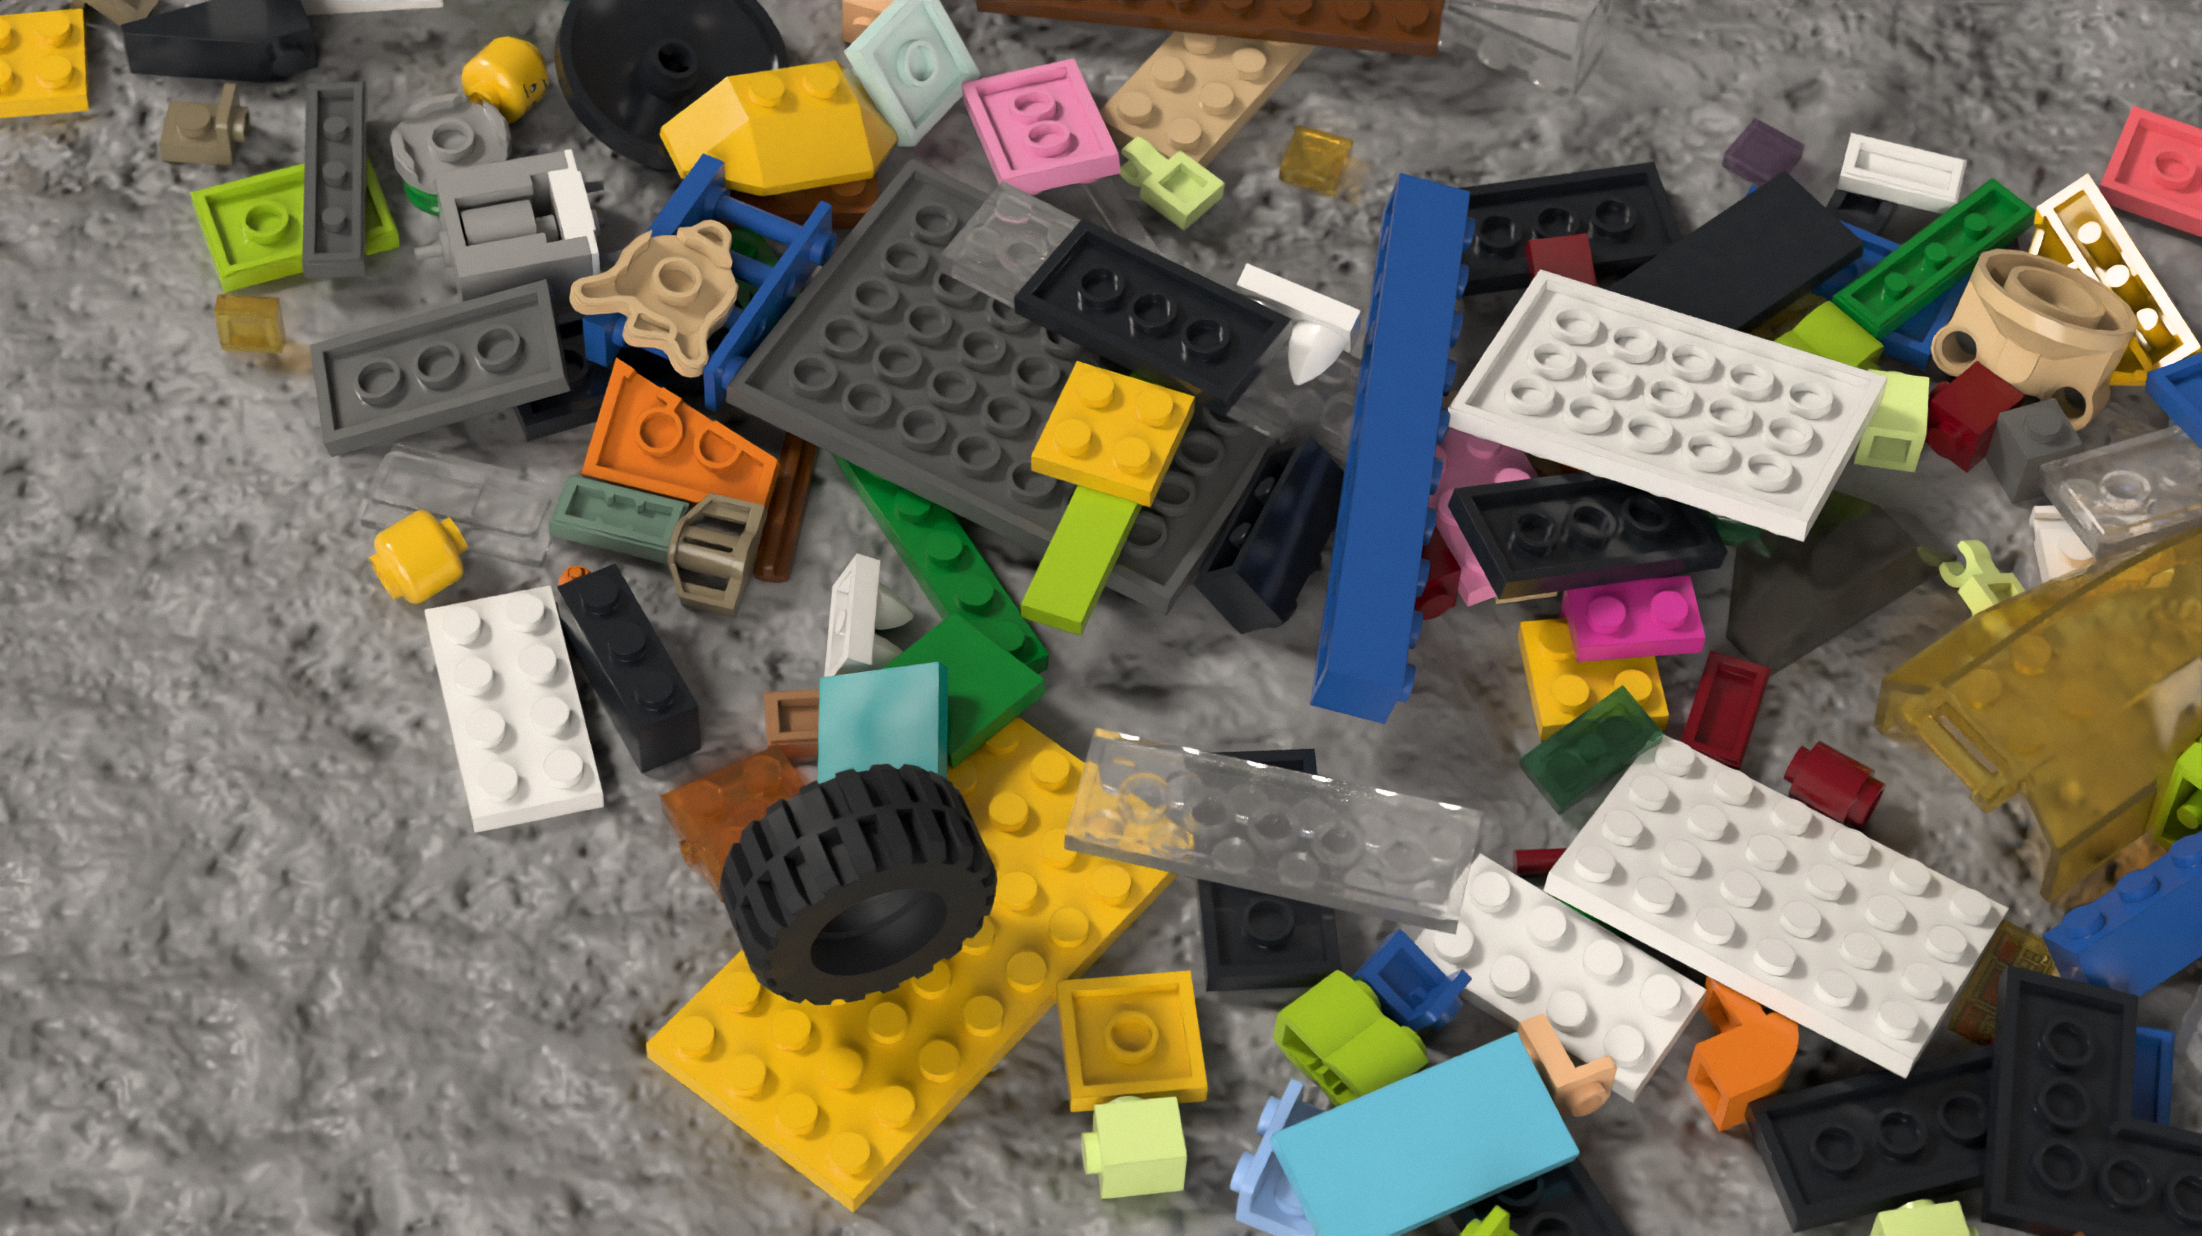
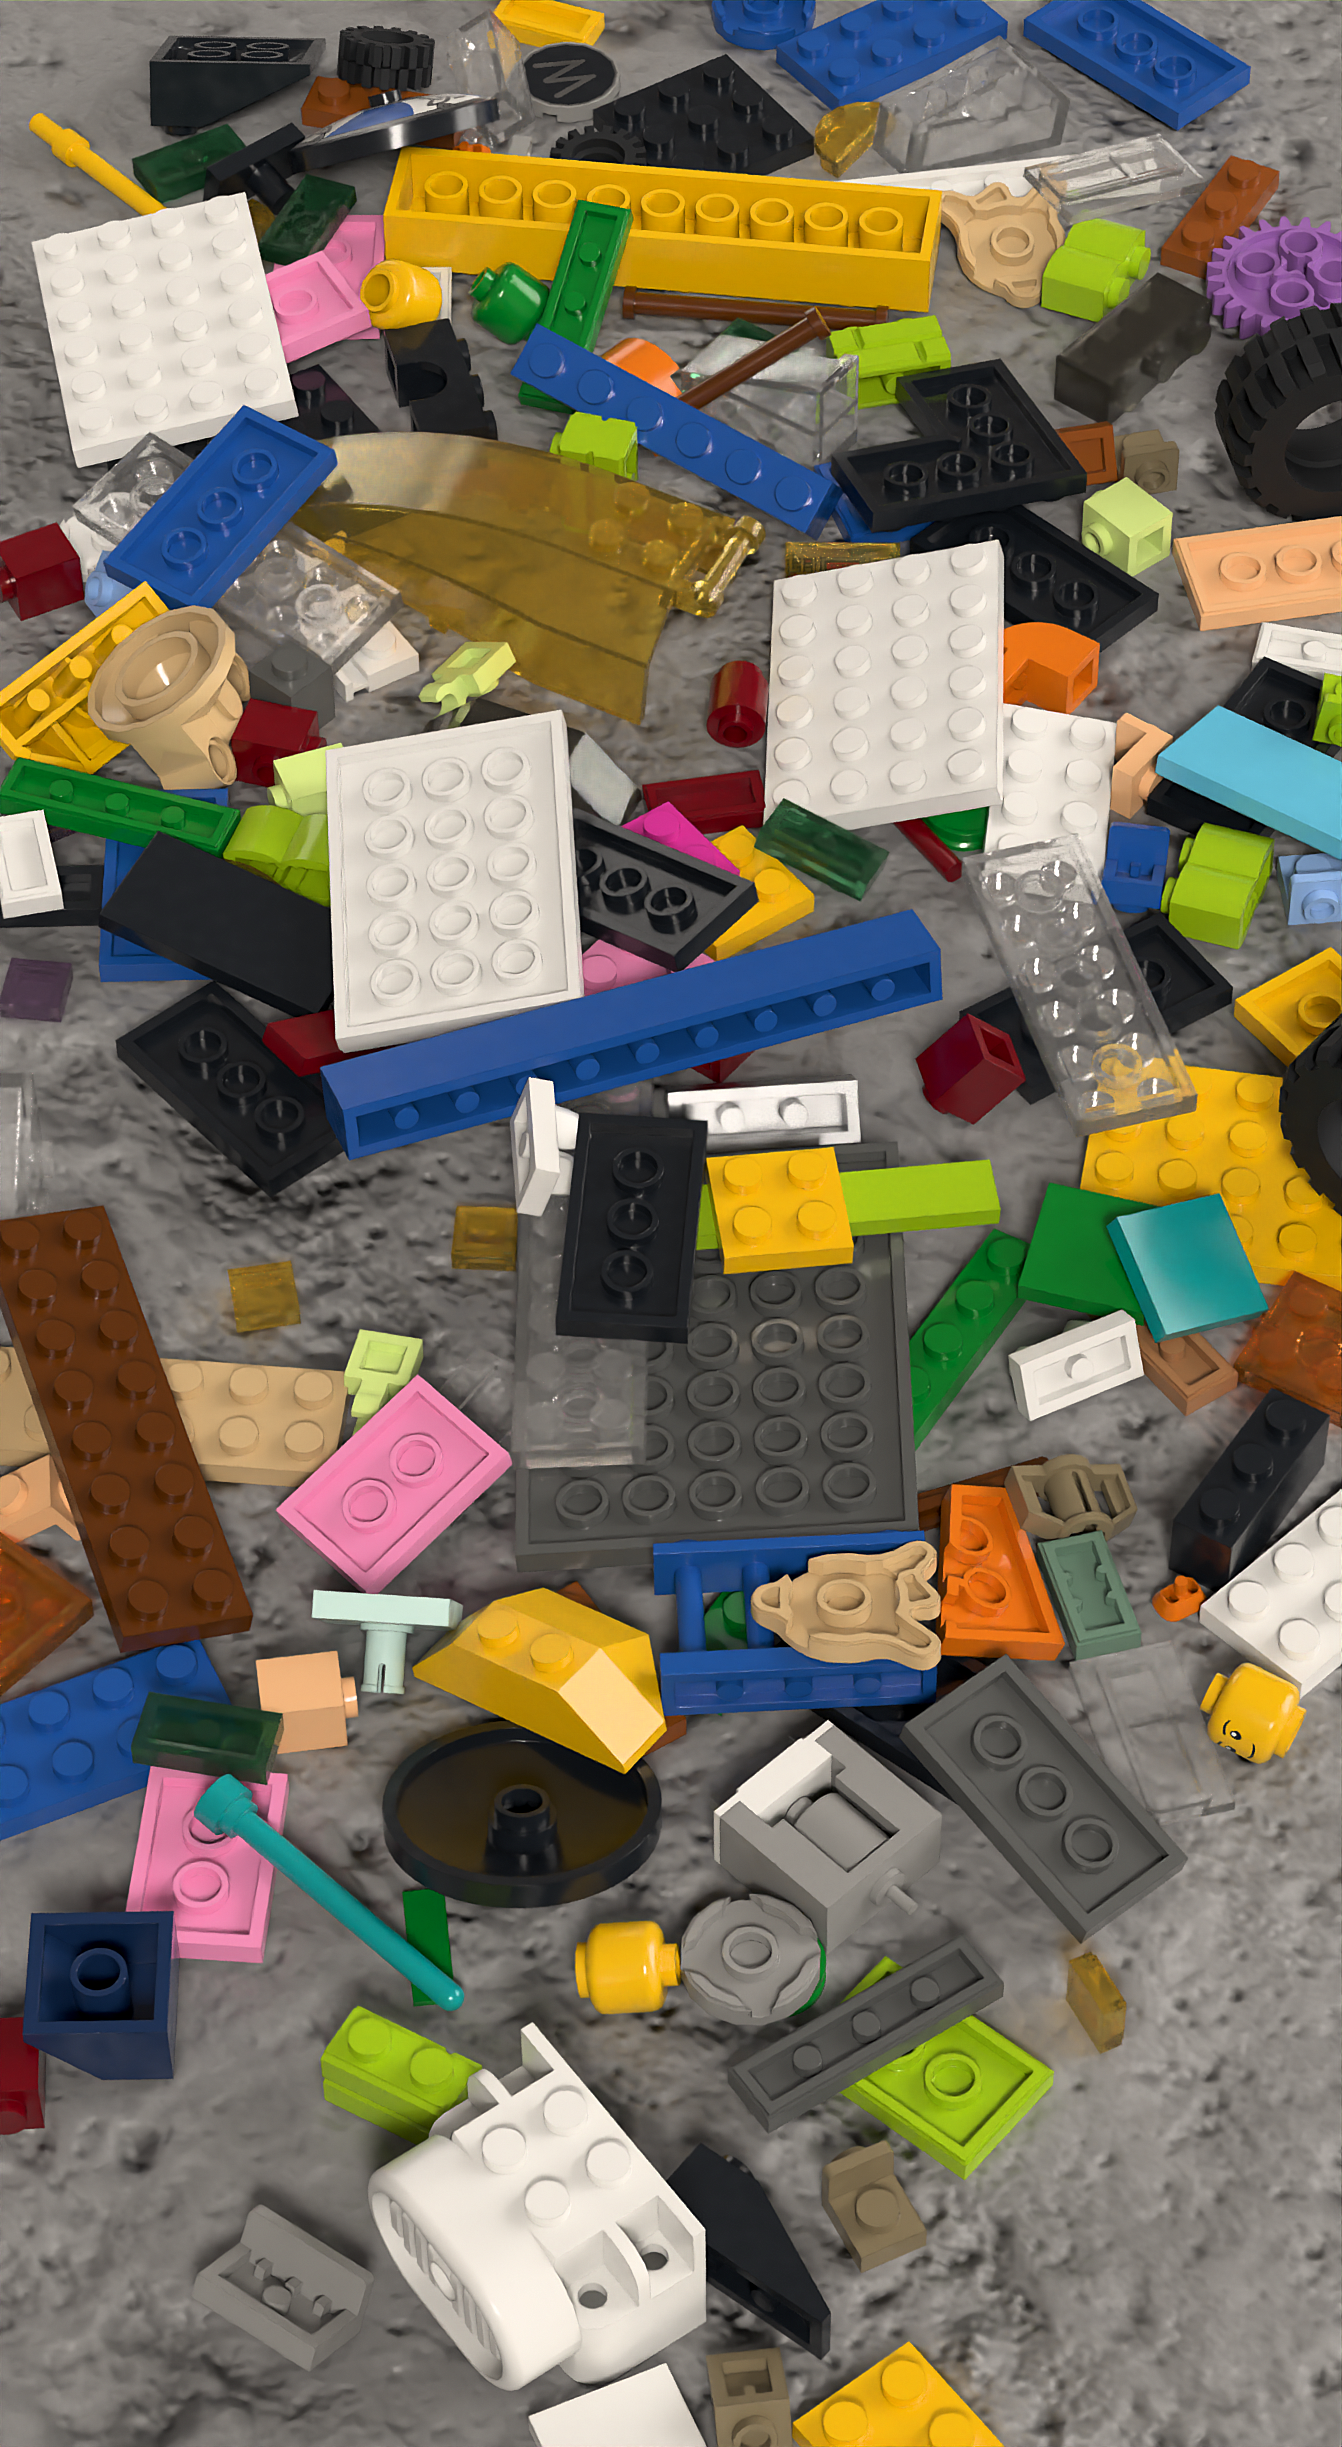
camera: 115 degrees left, 5 degrees down
(1229, 709) = (969, 1069): none -> dark red brick

